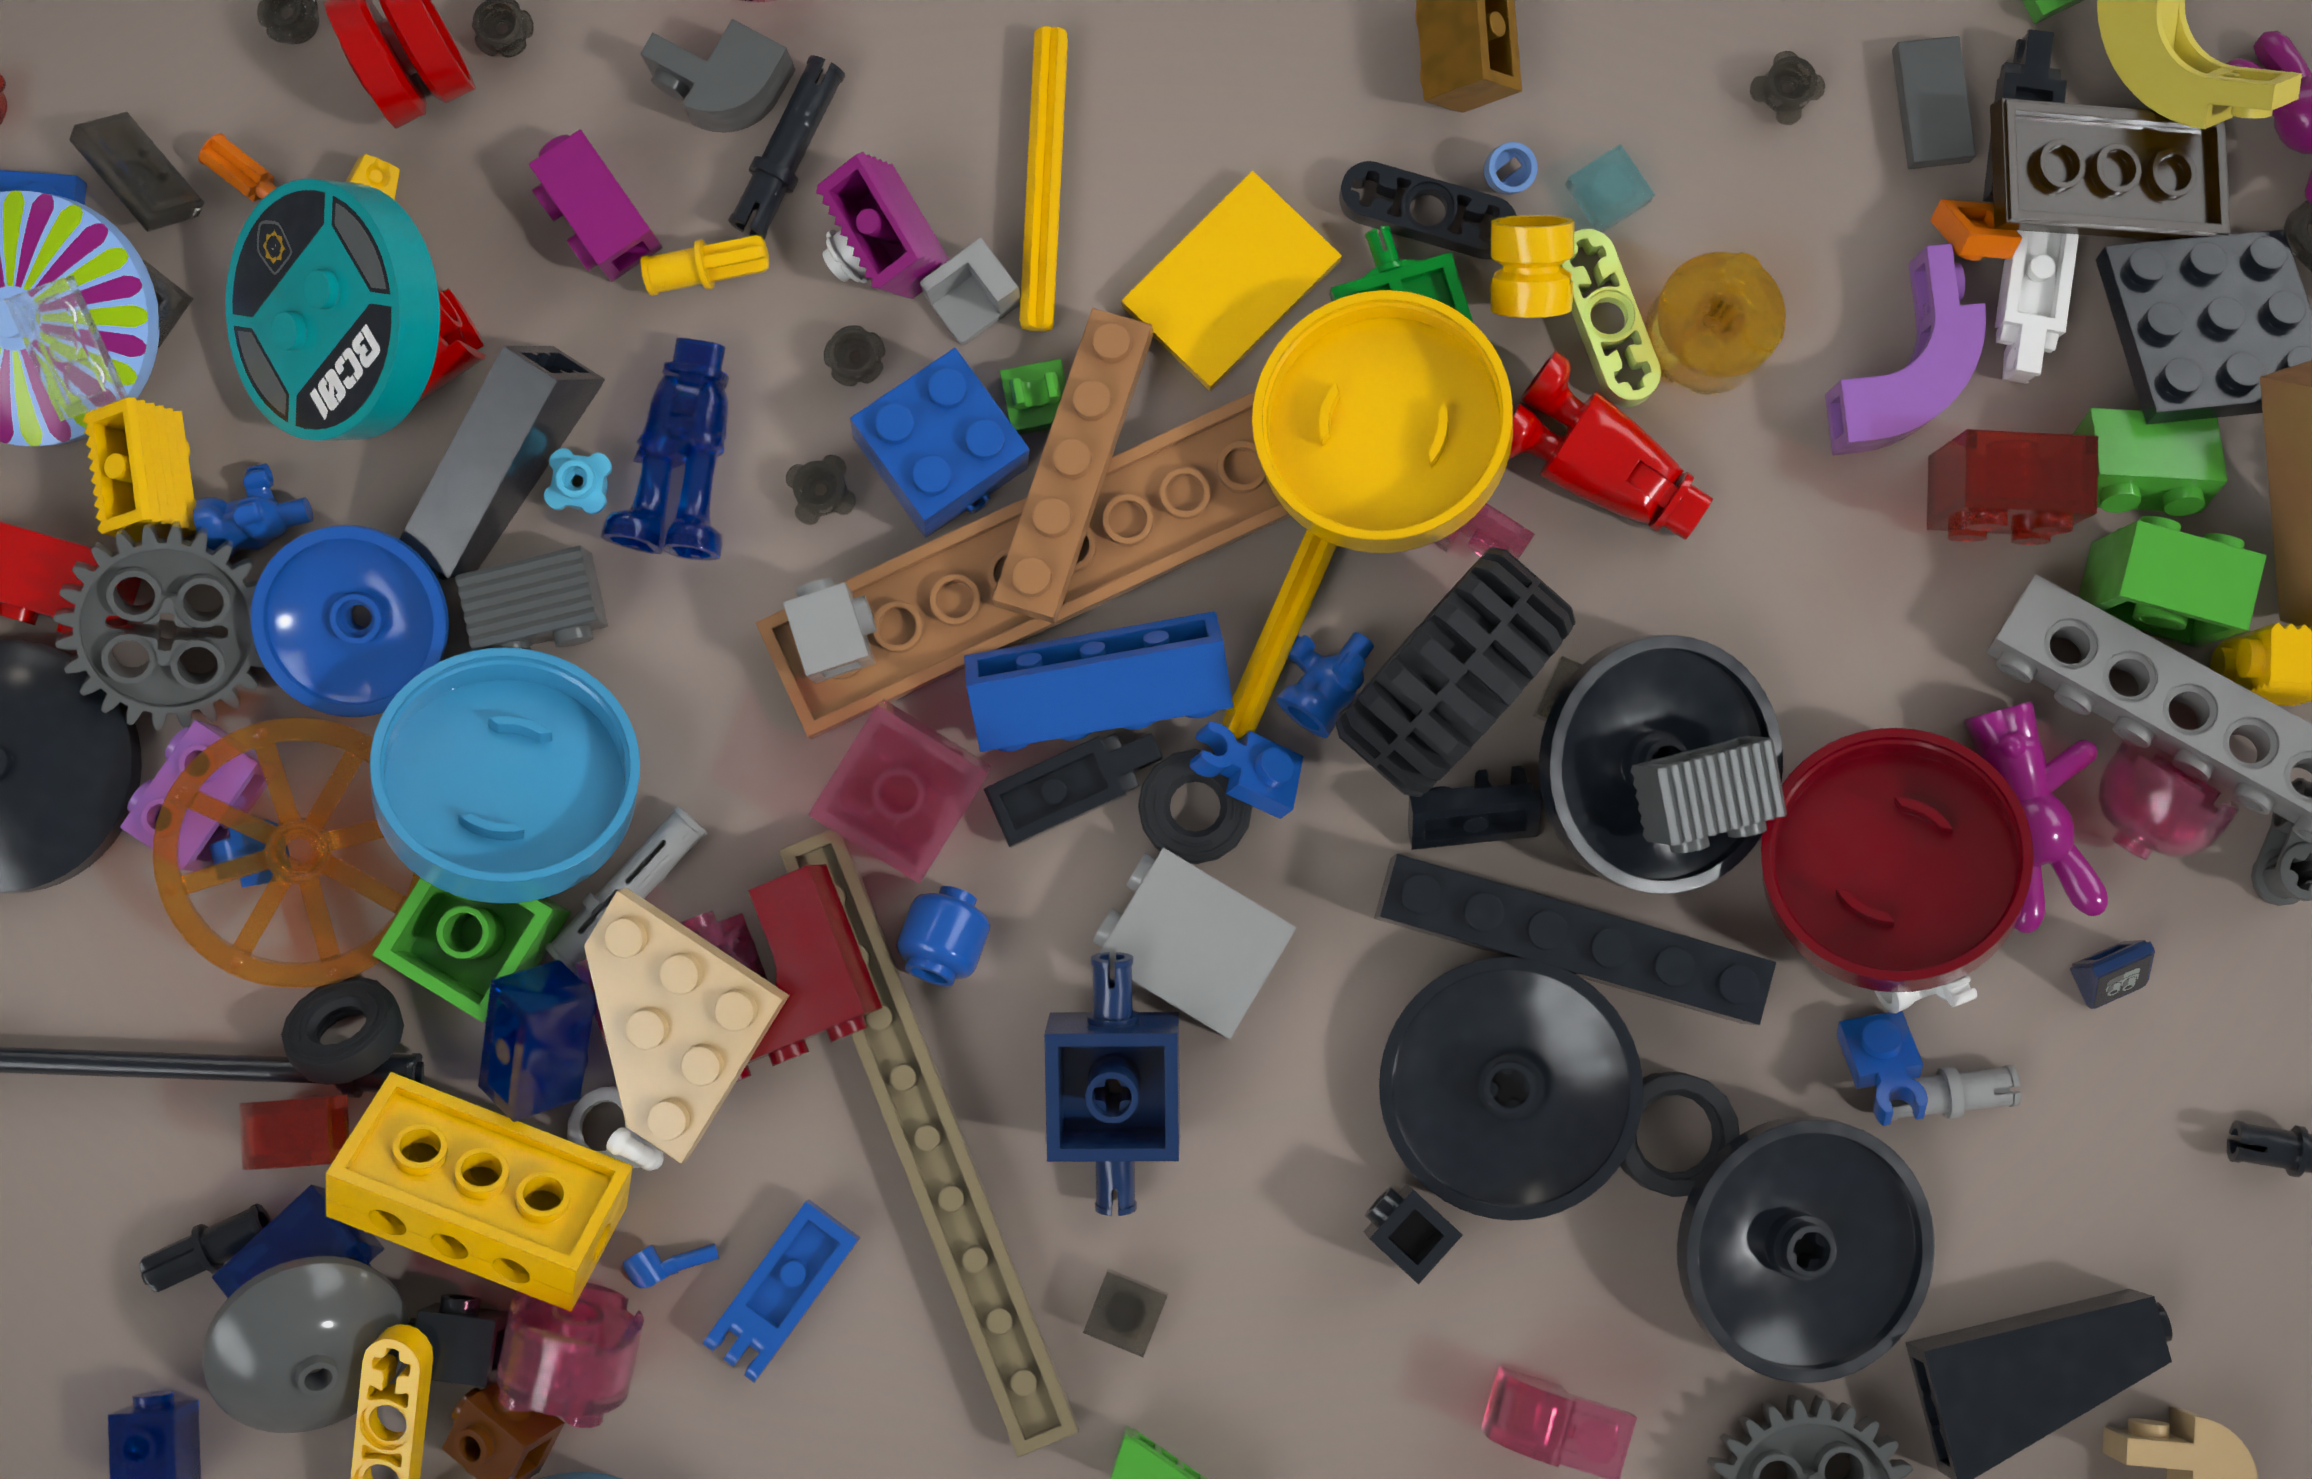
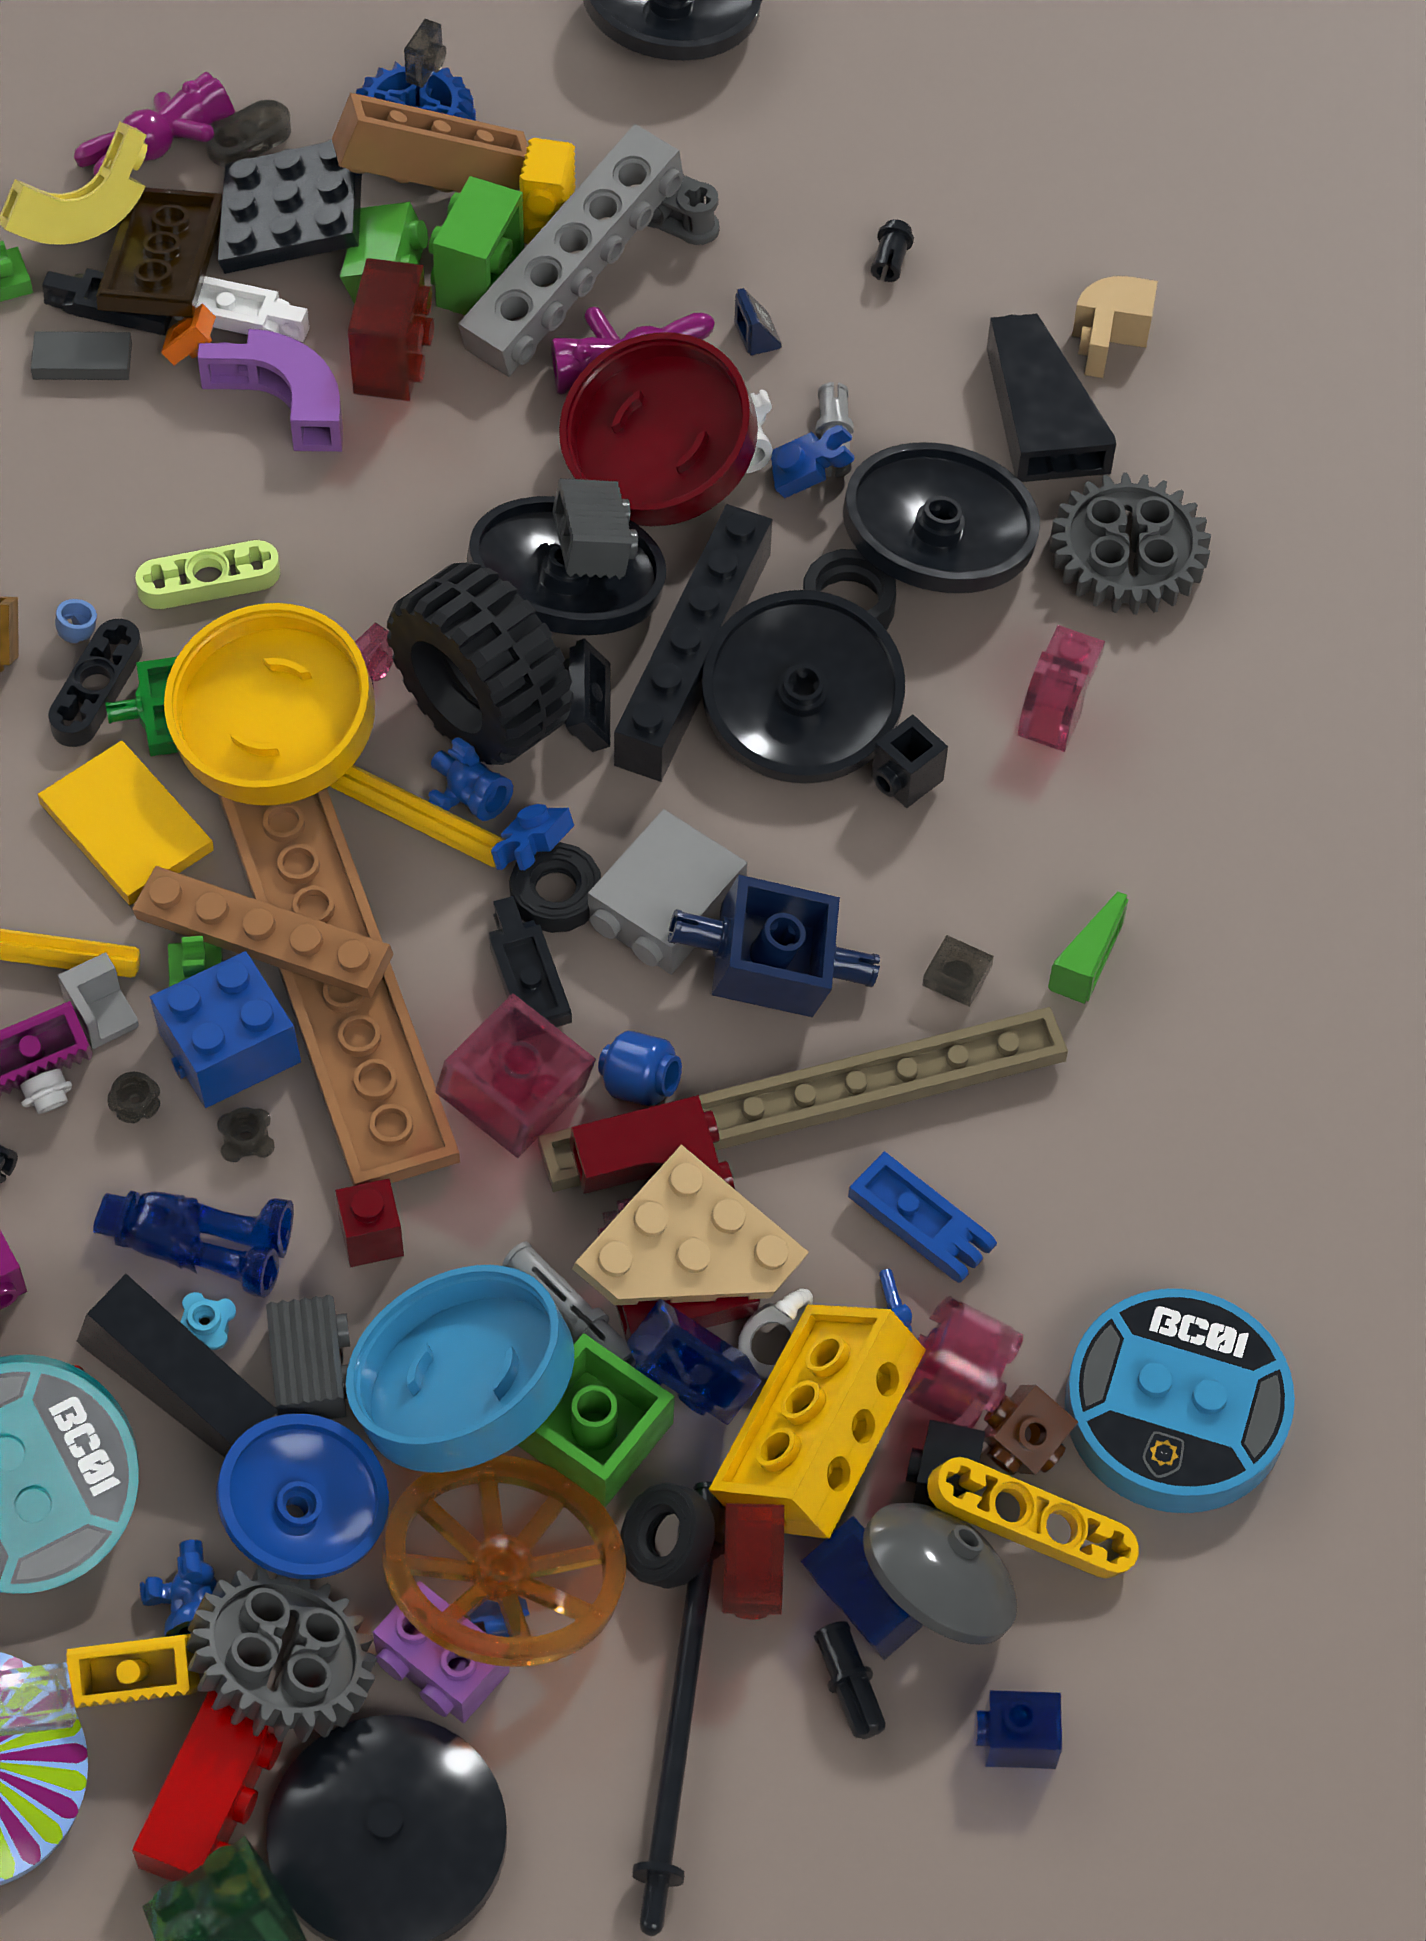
camera: 90 degrees left, 25 degrees down
(704, 264) = (30, 1204): yellow axle -> none
(706, 646) = (369, 1222): none -> dark red brick
(830, 629) = (373, 1111): light grey brick -> none
(1098, 682) = (445, 933): blue brick -> none
(1532, 274) = (158, 604): yellow wheel -> none
(1604, 455) = (327, 574): red piece -> none
(1609, 189) = (104, 563): clear light blue plate -> none
(1730, 291) = (227, 495): clear yellow brick -> none
(1797, 72) = (43, 432): clear smoke plate -> none
(2160, 806) = (638, 277): clear pink cylinder -> none

